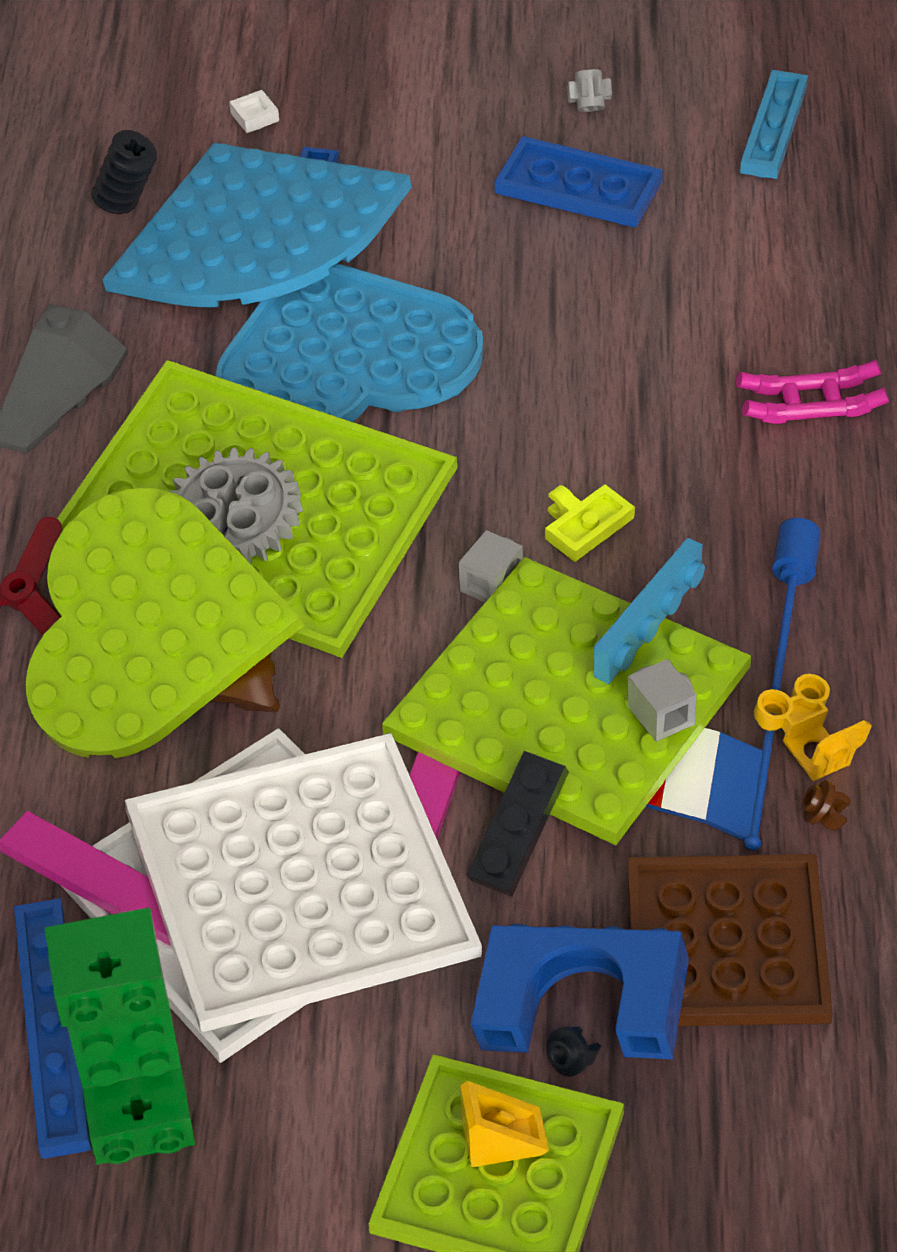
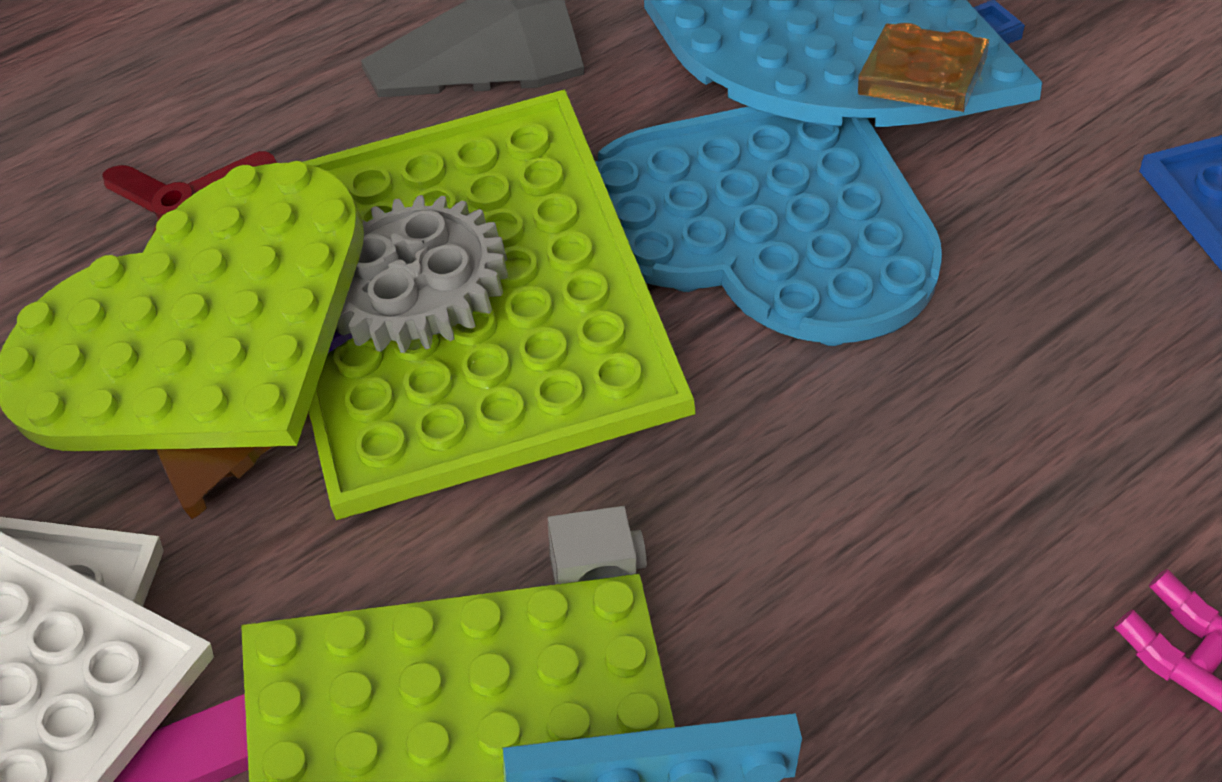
camera: 45 degrees right, 0 degrees up
(346, 208) = (923, 66): none -> clear orange plate
(587, 522) = (768, 595): neon yellow plate -> none

